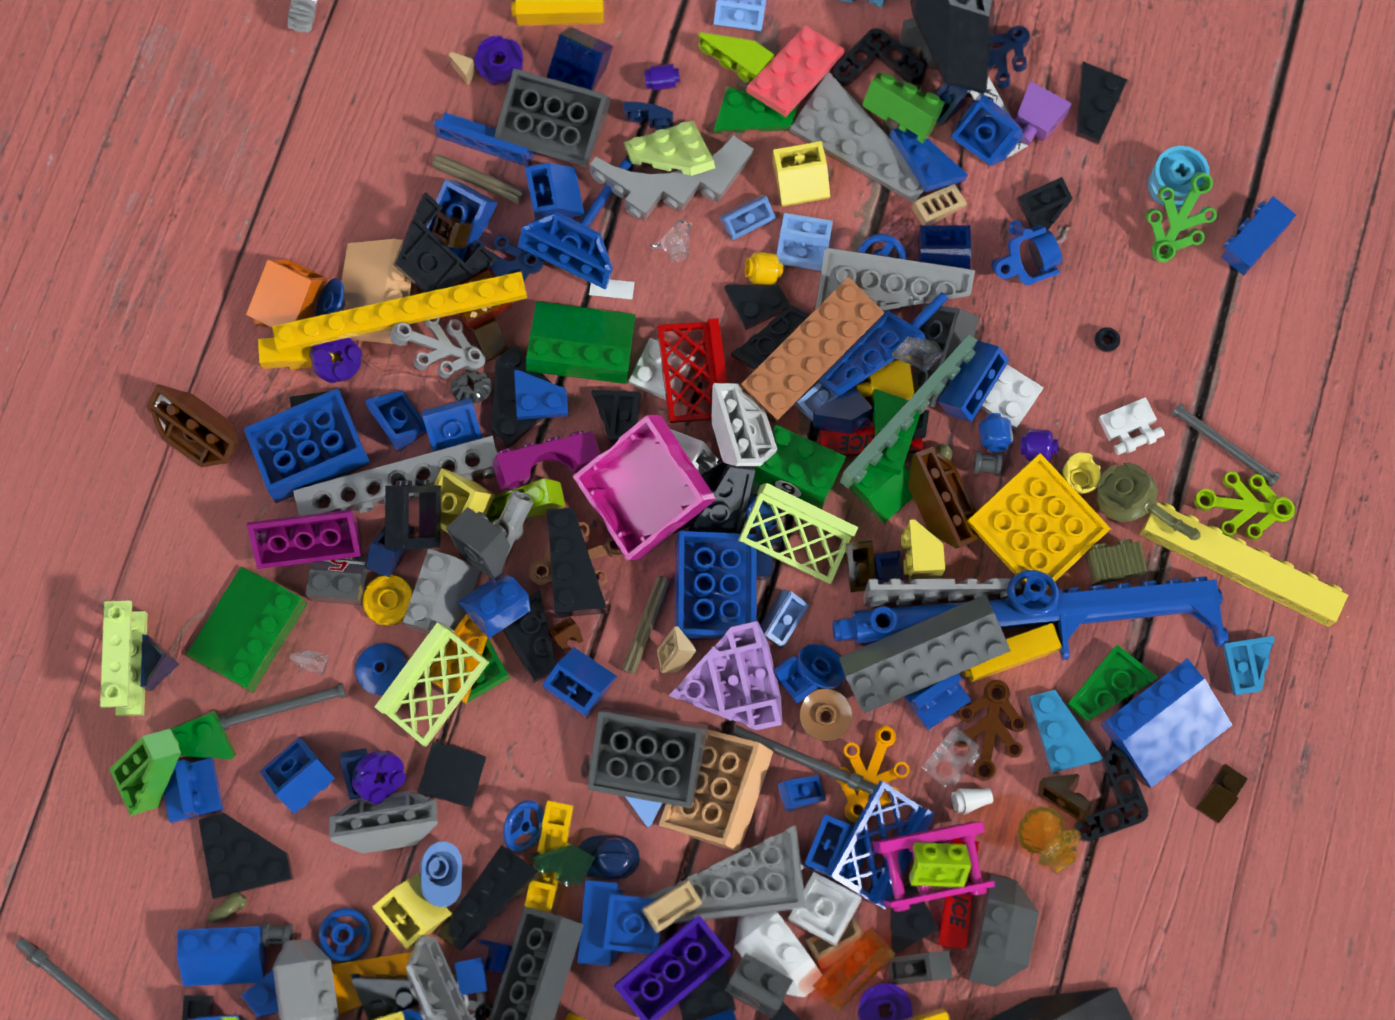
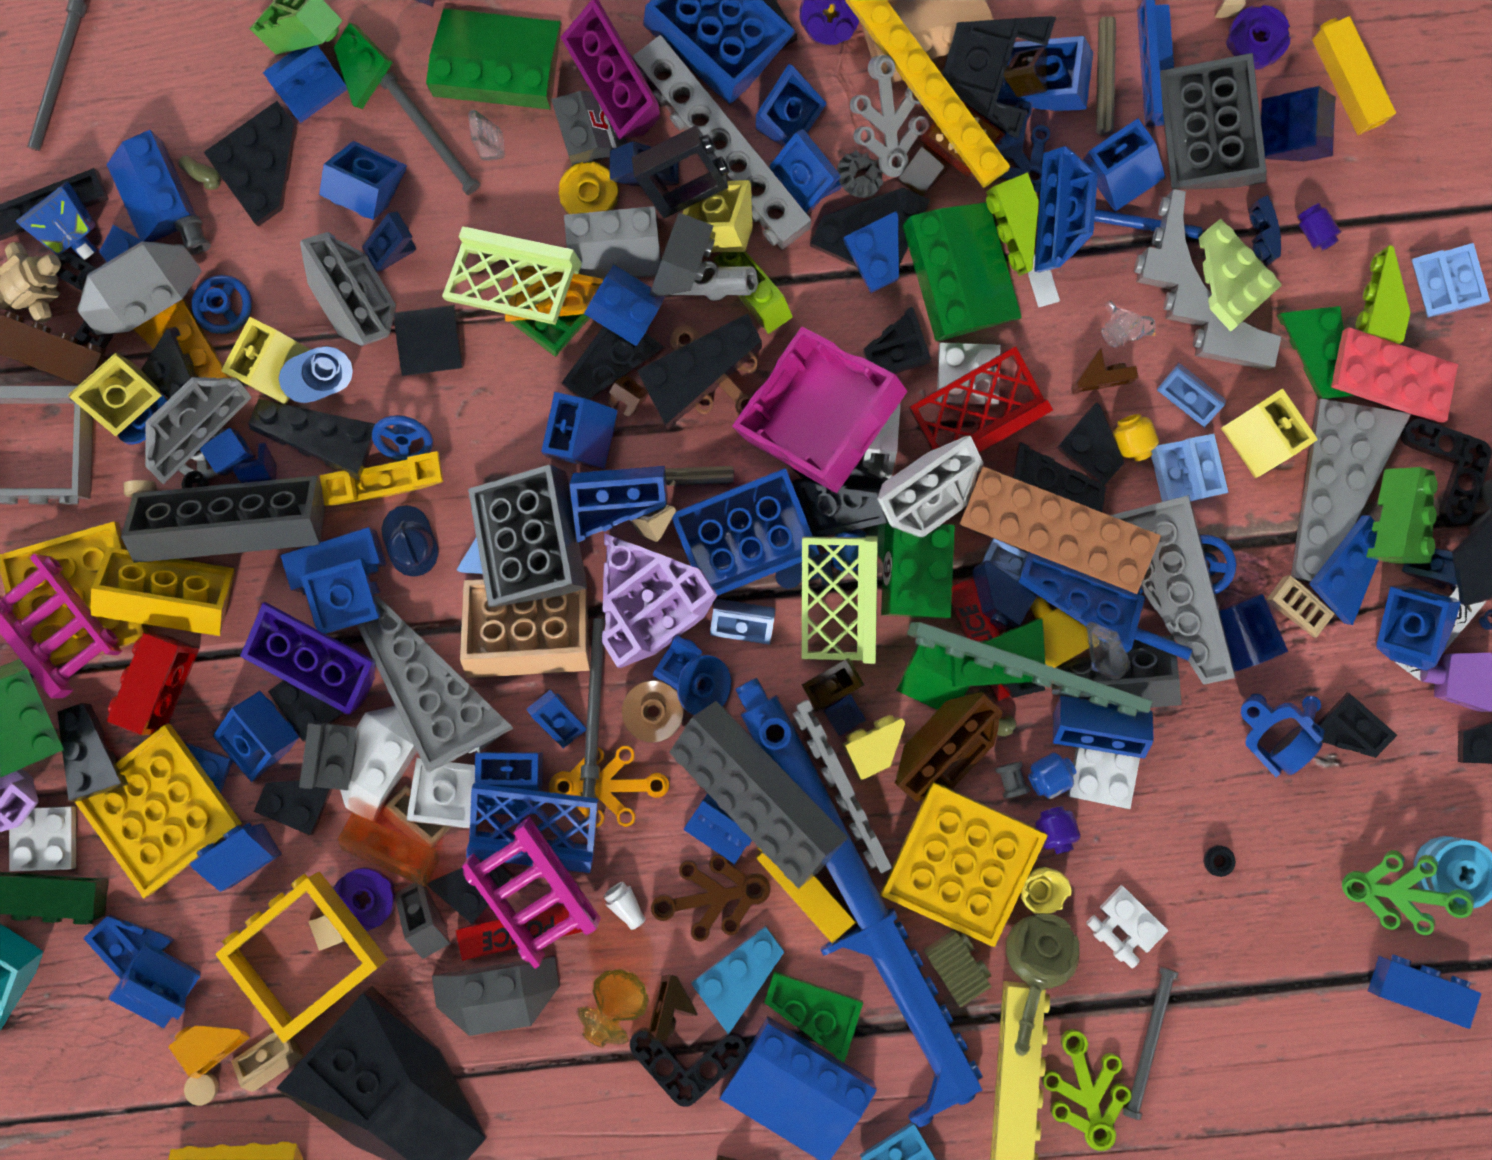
camera: 70 degrees right, 10 degrees up
(366, 673) = (527, 219): blue dish -> none
(391, 778) = (406, 267): dark purple plate -> none
(515, 466) = (784, 258): magenta arch -> none
(557, 284) = (1016, 213): none -> lime slope
(564, 860) = (380, 497): clear green slope -> none
(645, 672) = (615, 496): none -> blue wedge
(671, 906) = (374, 629): tan tile -> none
(704, 277) = (1096, 376): none -> reddish brown slope
(940, 865) = (529, 901): lime bracket -> none
(946, 752) = (662, 860): clear brick -> none
(1035, 581) = (889, 893): blue piece -> none

